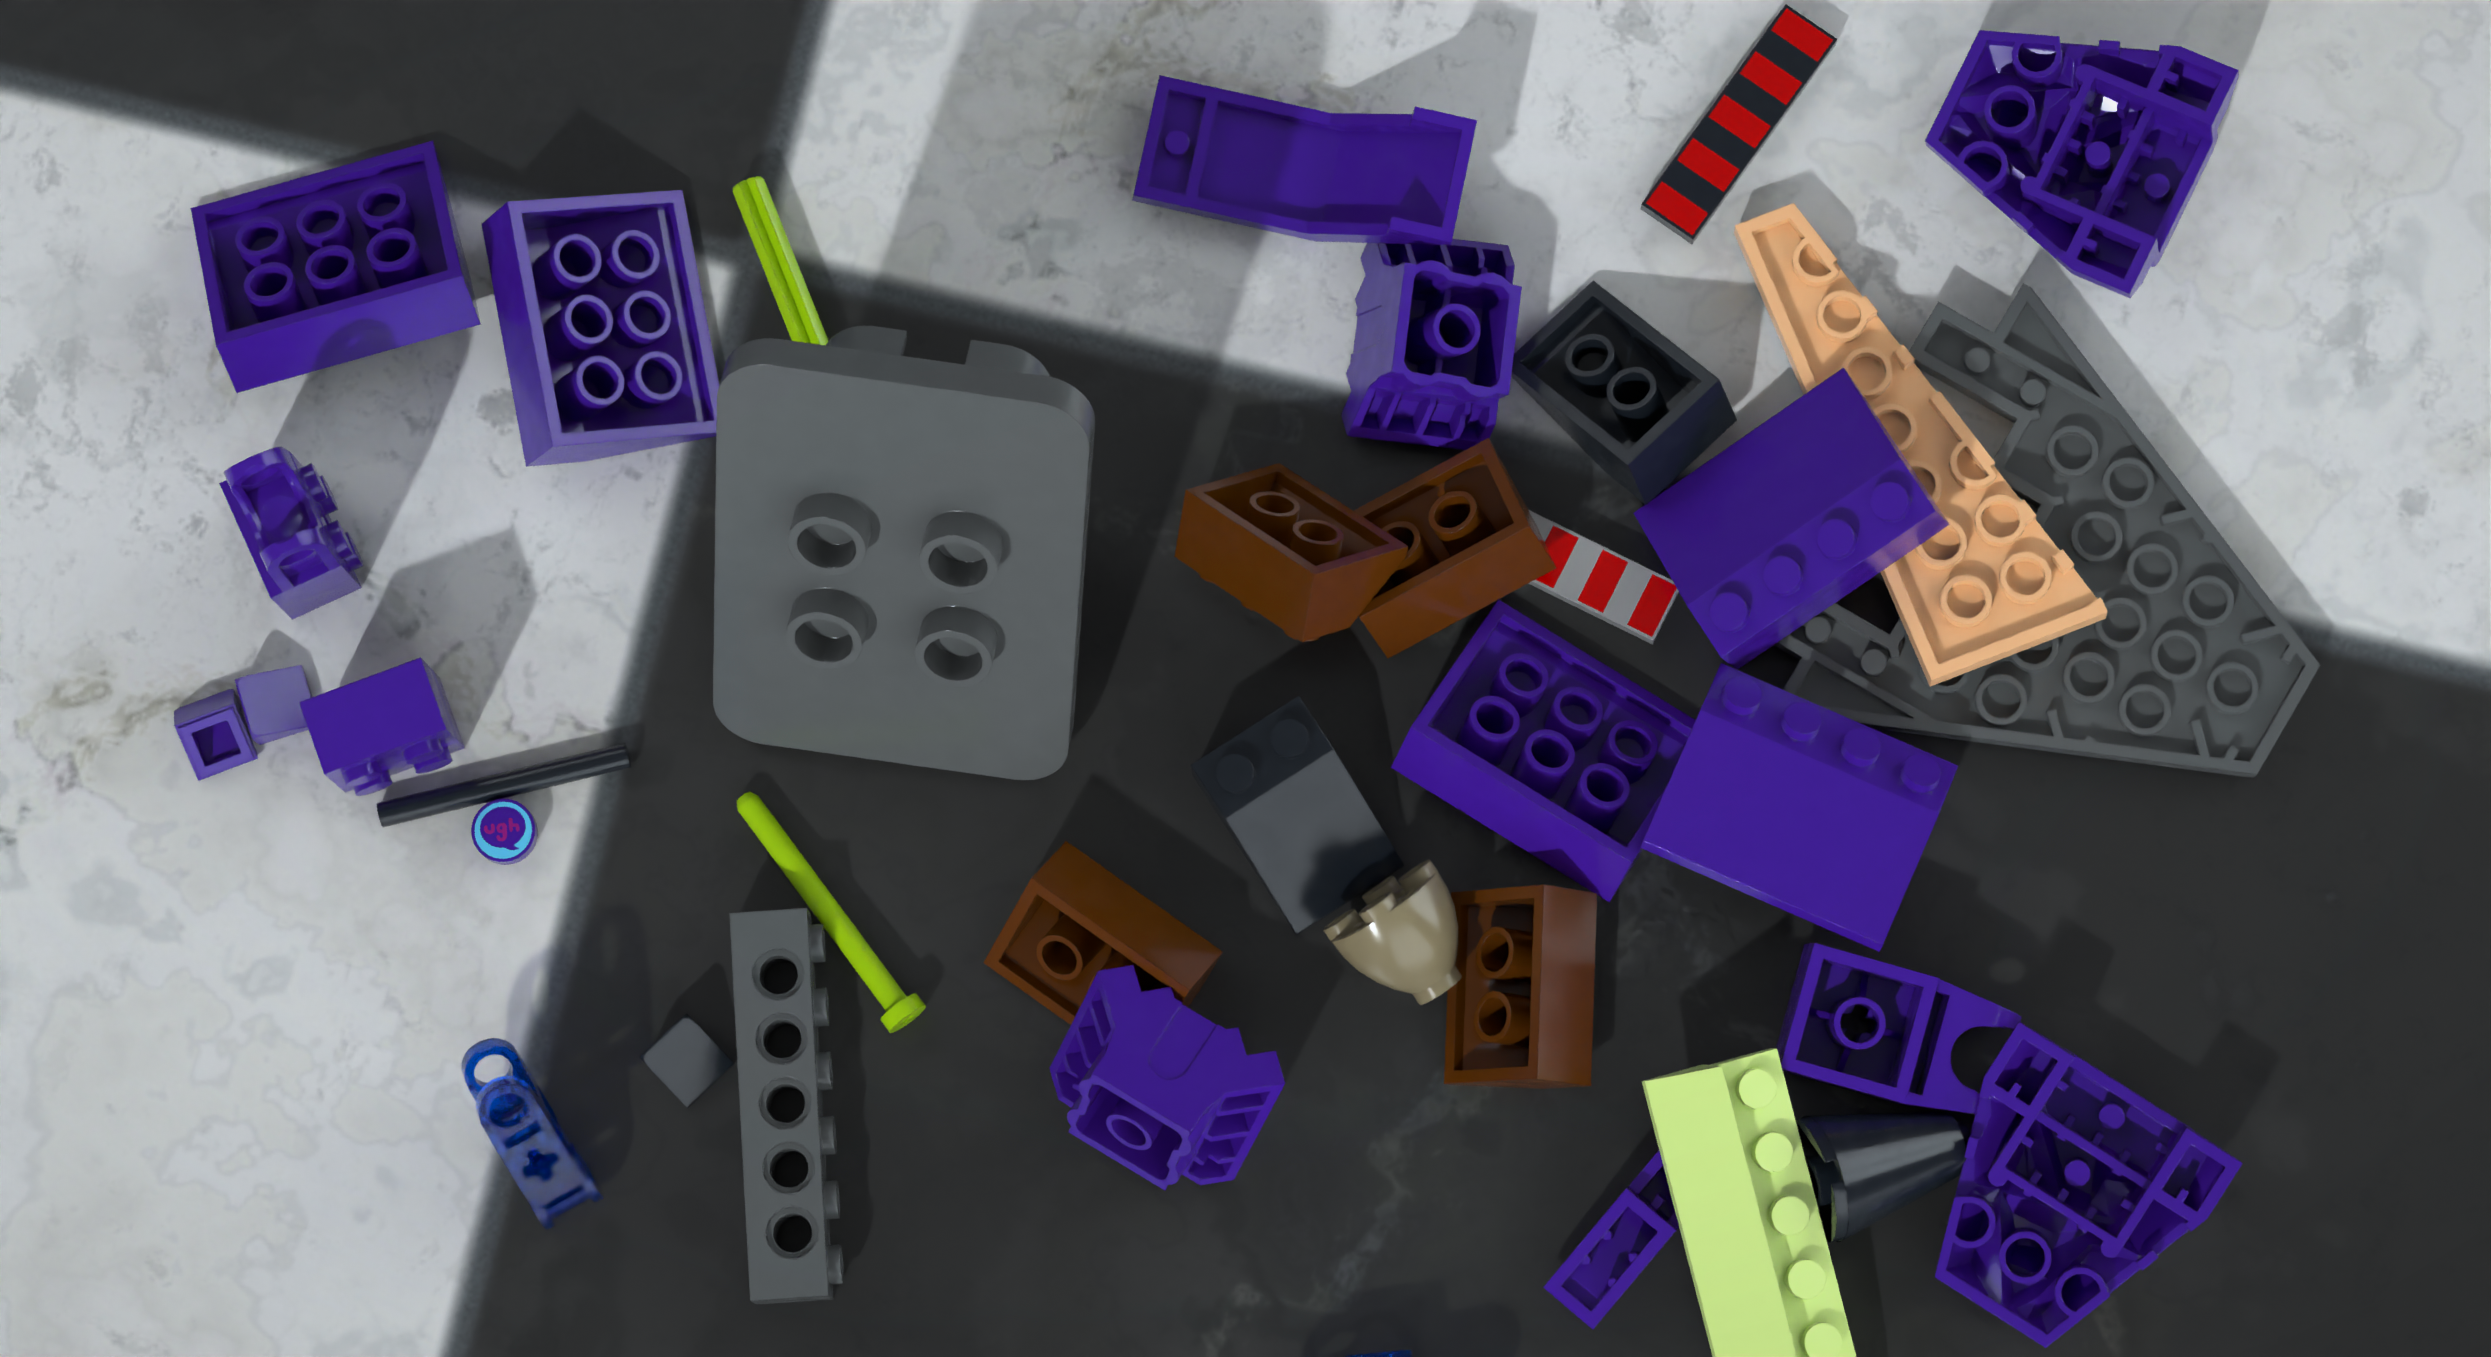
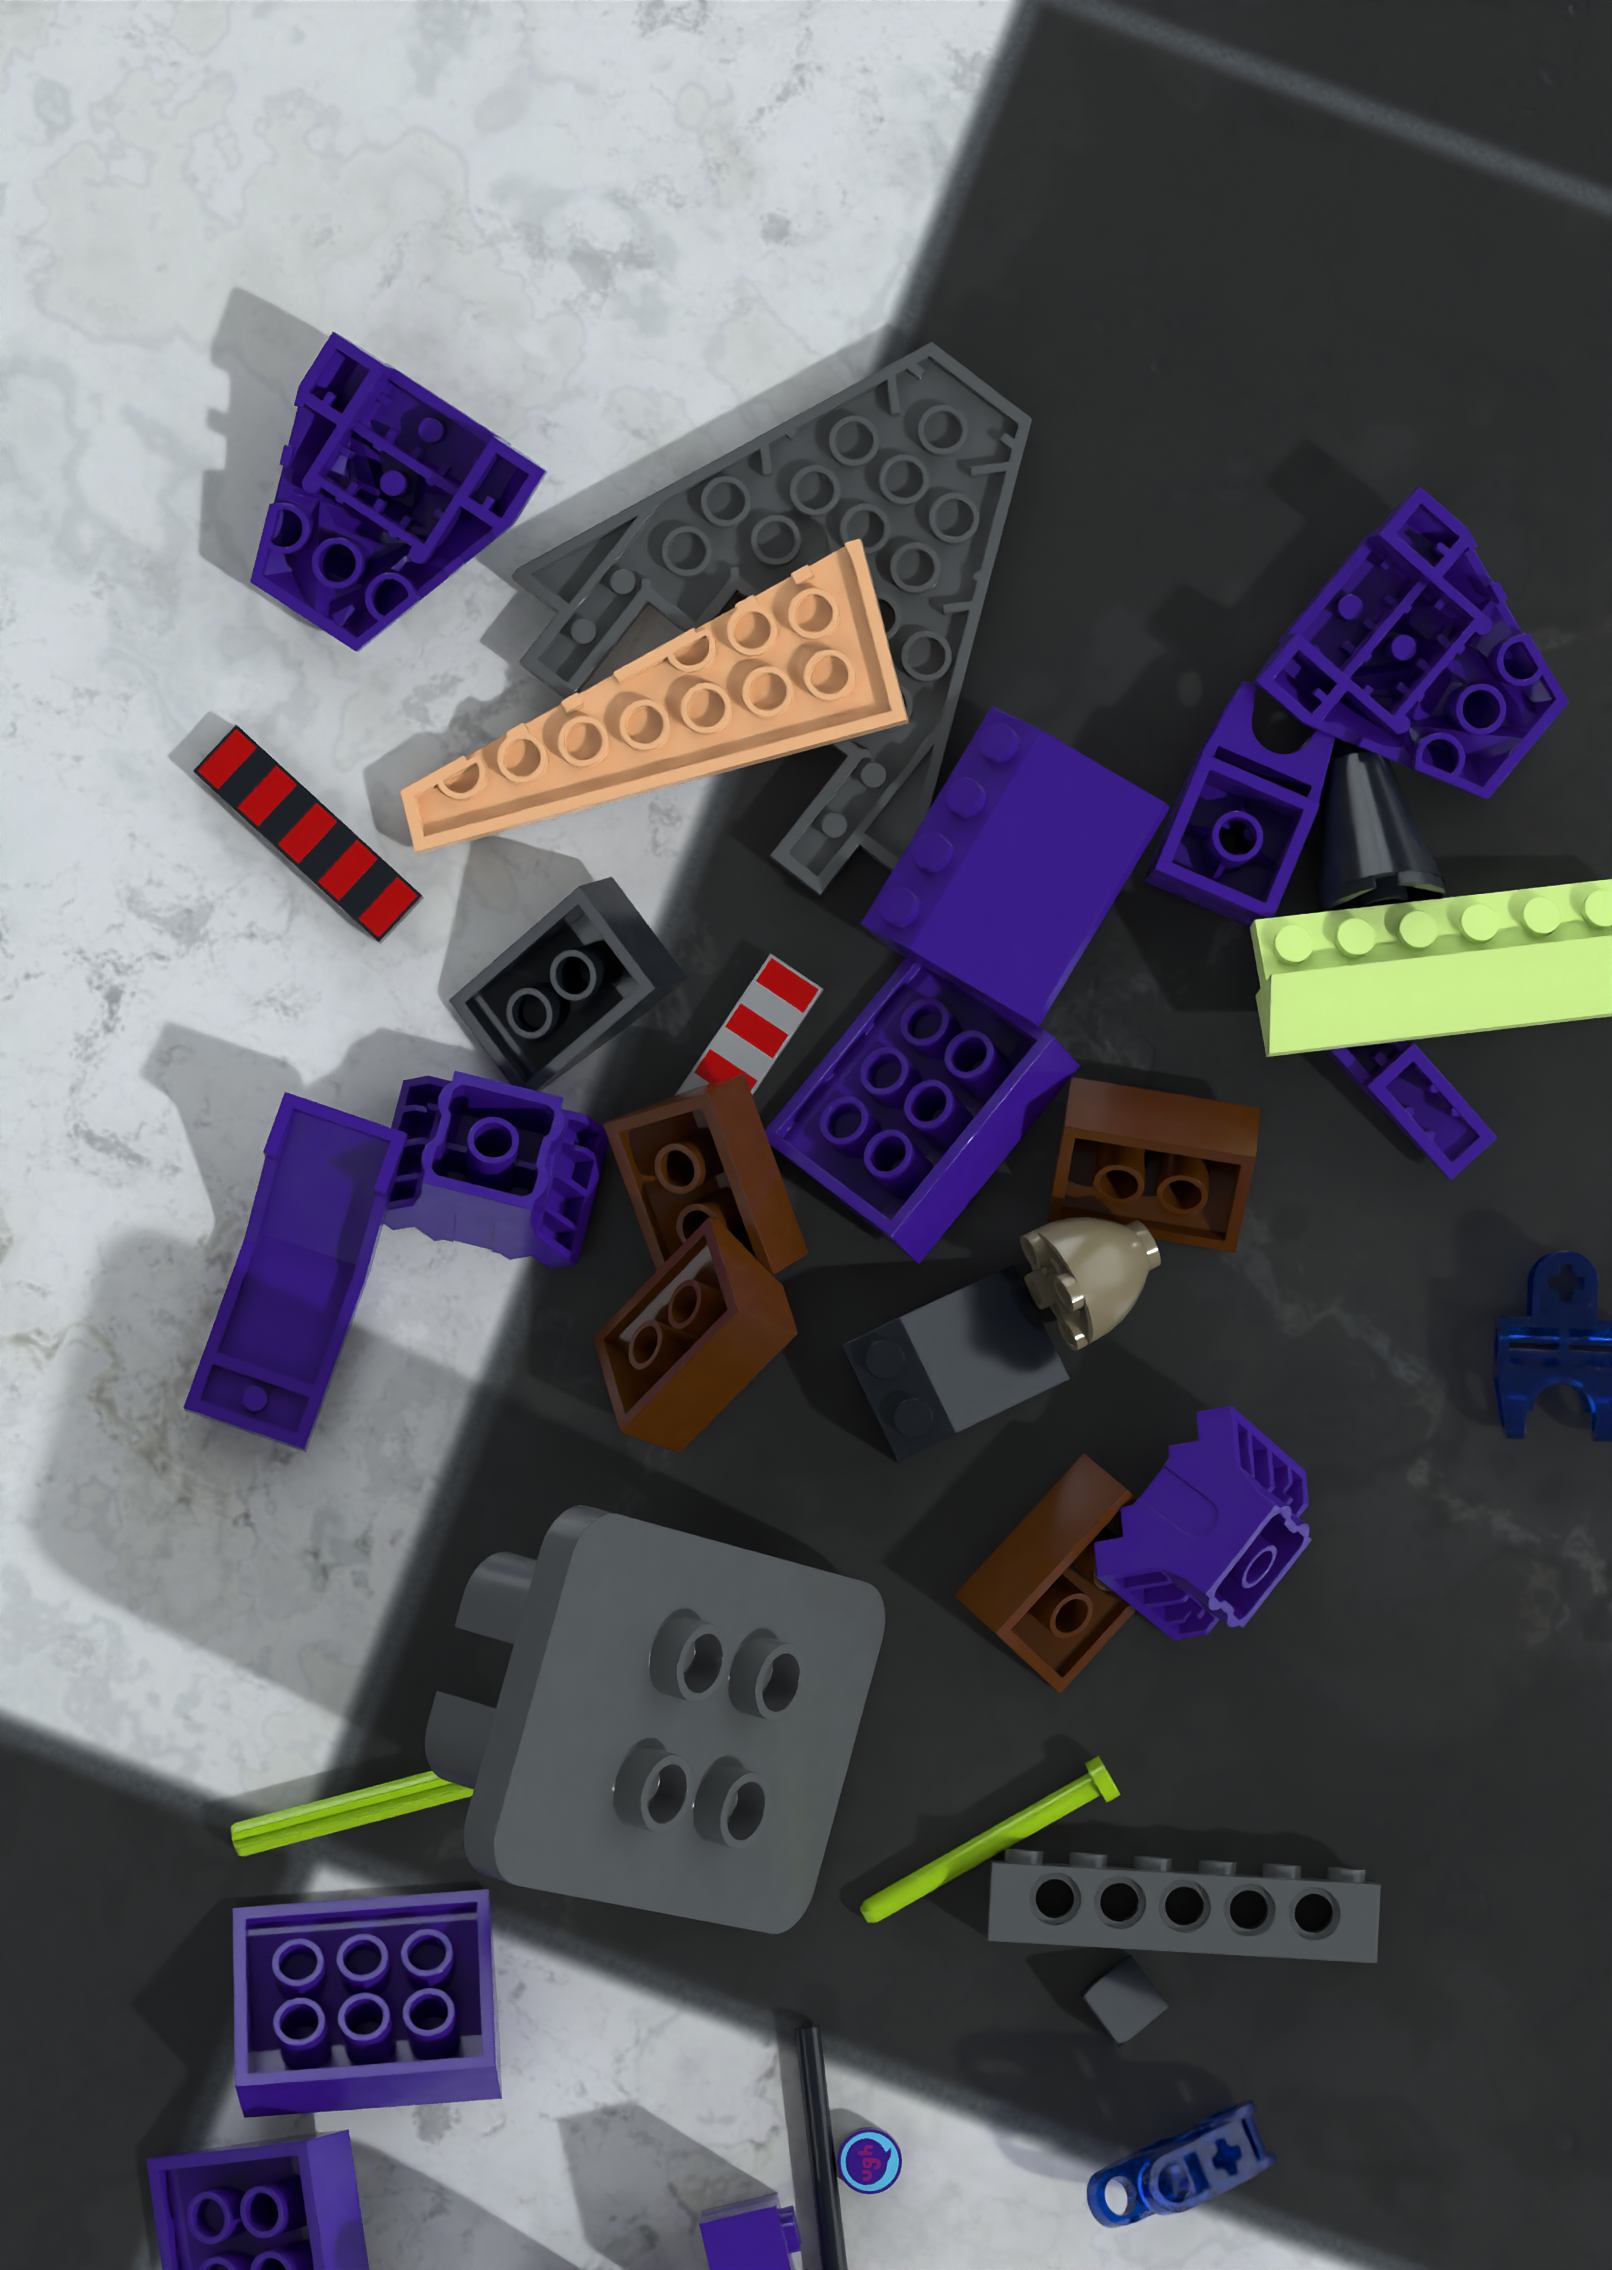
camera: 85 degrees left, 5 degrees up
(1789, 520) = (724, 838): dark purple slope -> none

